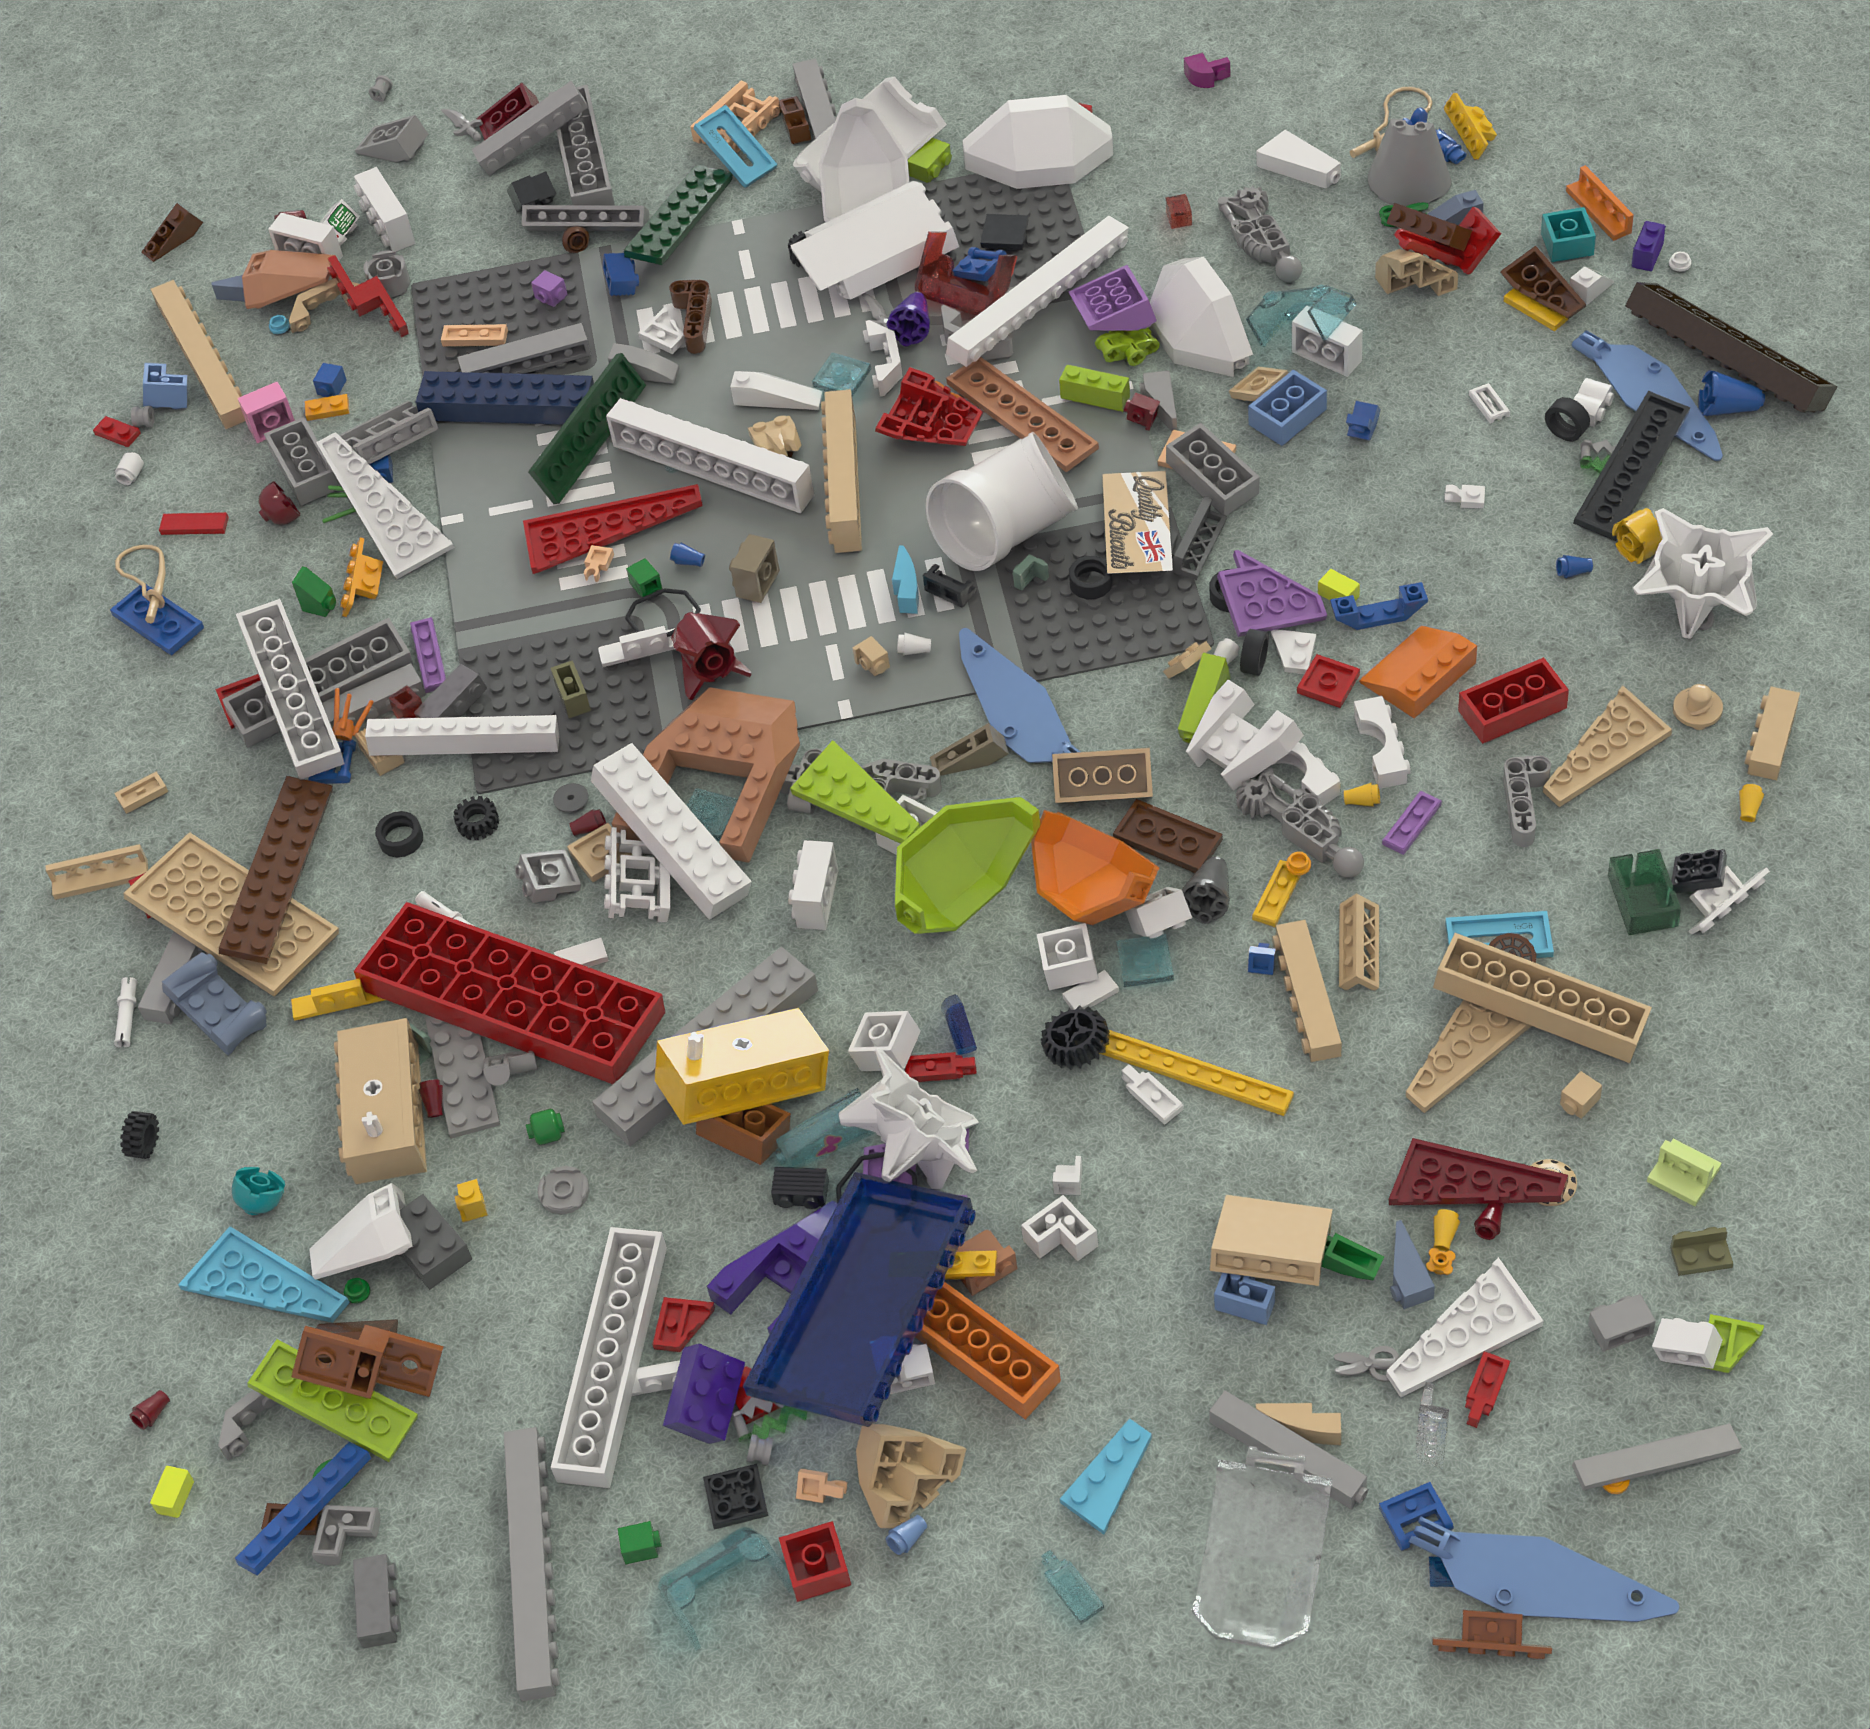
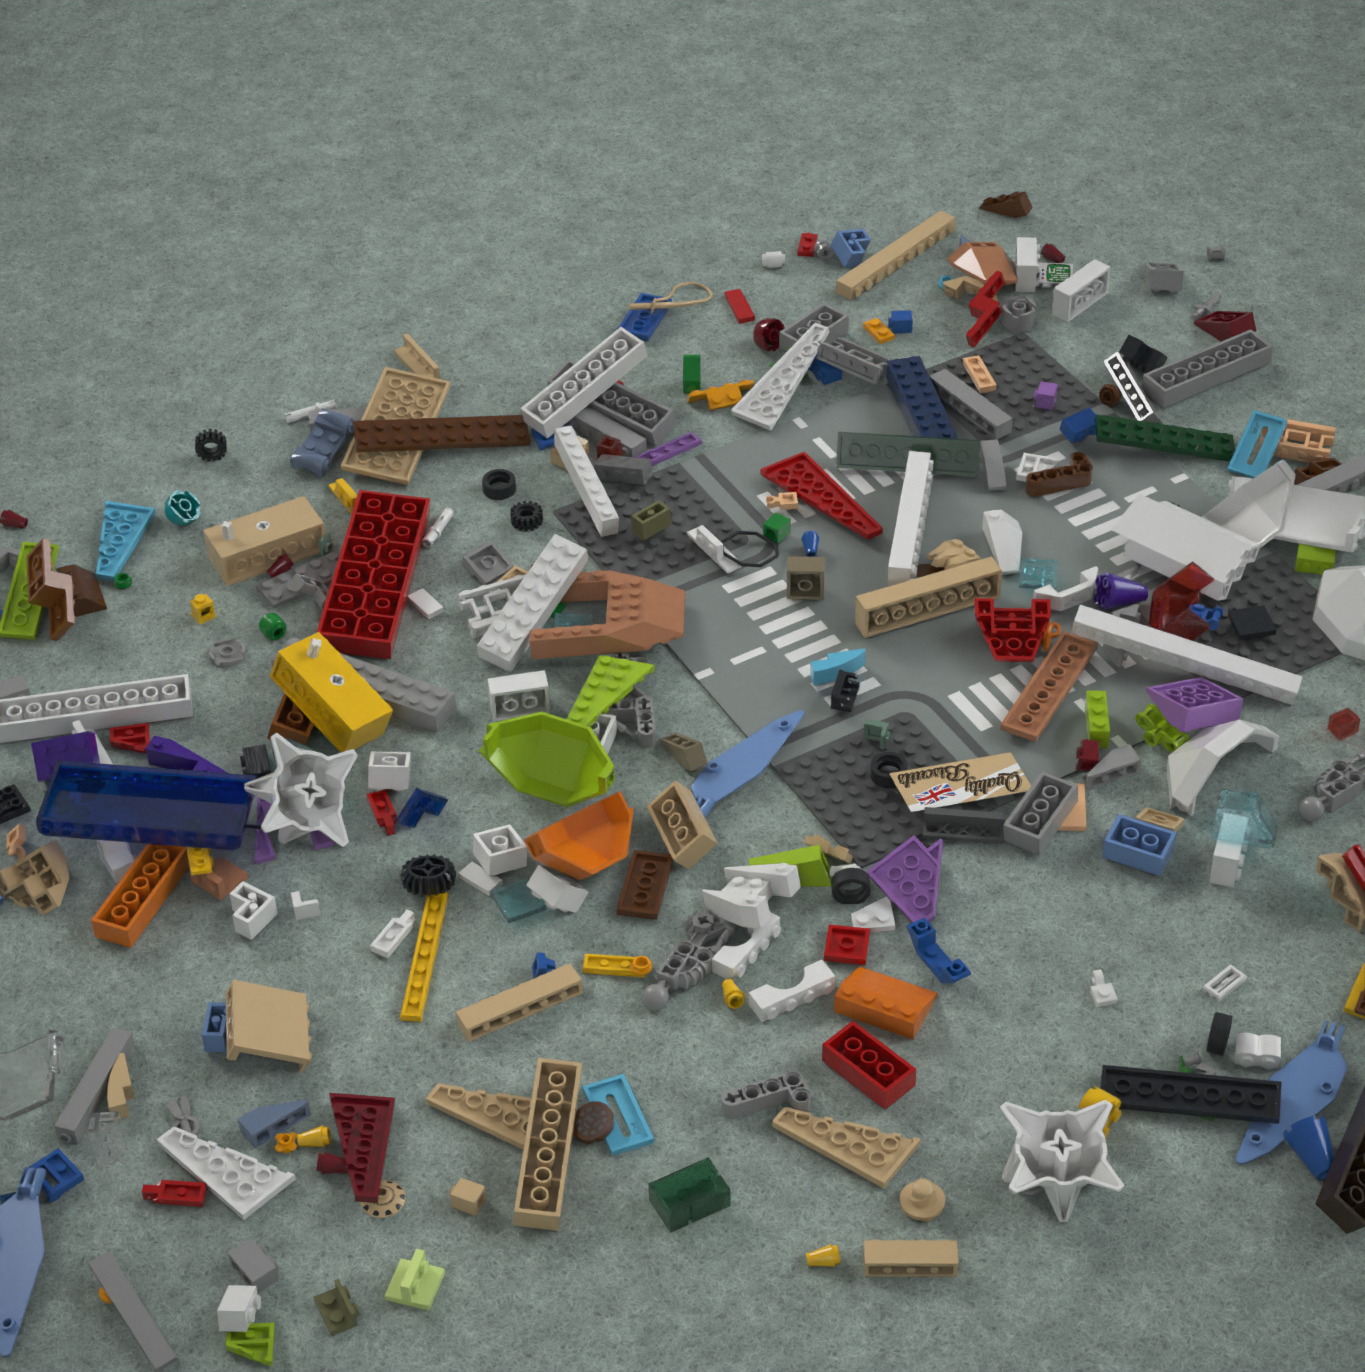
camera: 65 degrees right, 10 degrees down
(141, 792) = (492, 359): tan plate -> none
(265, 410) = (850, 298): bright pink brick -> none
(344, 728) = (575, 422): orange plant -> none
(363, 1235) = (147, 565): white wedge -> none
(436, 1245) = (164, 598): dark grey brick -> none
(530, 128) = (1205, 331): light grey brick -> none
(706, 649) = (711, 572): dark red brick -> none
(760, 1449) = (35, 800): light grey wheel -> none
(871, 656) = (751, 668): tan brick -> none
(912, 644) = (774, 686): white cone -> none
(997, 504) = (929, 687): white cylinder -> none
(1103, 1483) = (55, 992): medium azure wing -> none
(1208, 891) = (597, 916): dark grey cone -> none
(1336, 585) = (950, 927): neon yellow piece -> none
(1350, 1258) = (273, 1081): green slope -> none
(1352, 942) = (577, 1018): tan fence -> none
(1363, 420) = (1152, 900): blue brick -> none
(1411, 822) = (718, 1033): medium lavender tile -> none
(1571, 565) = (1050, 1079): blue cone -> none
(1699, 871) = (726, 1228): black tile -> none
(1717, 900) = (711, 1251): white bracket -> none

